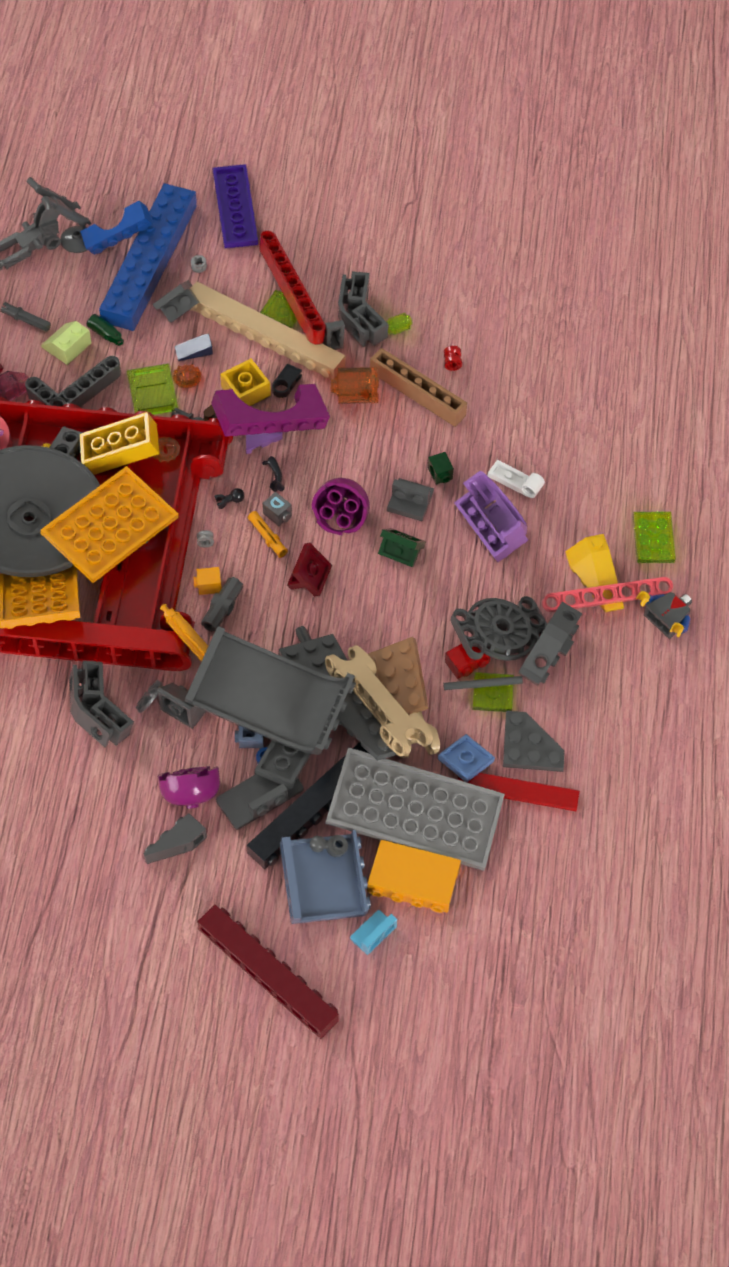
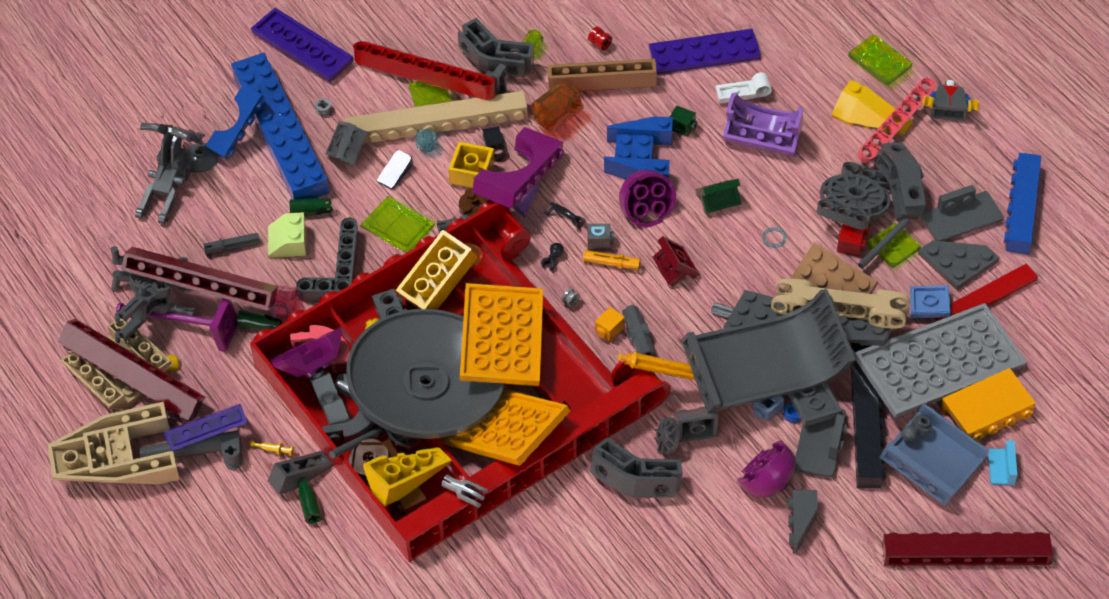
camera: 40 degrees left, 5 degrees down
(182, 381) = (413, 200): clear orange gear -> none
(237, 342) = (426, 140): none -> clear light blue gear
(382, 463) = (635, 146): none -> blue wedge
(409, 621) = (774, 229): none -> clear light blue piece
(410, 499) = (685, 158): dark grey bracket -> none
(523, 427) = (705, 51): none -> dark purple plate
(574, 709) = (961, 213): none -> dark grey bracket
(634, 740) = (1023, 203): none -> blue brick

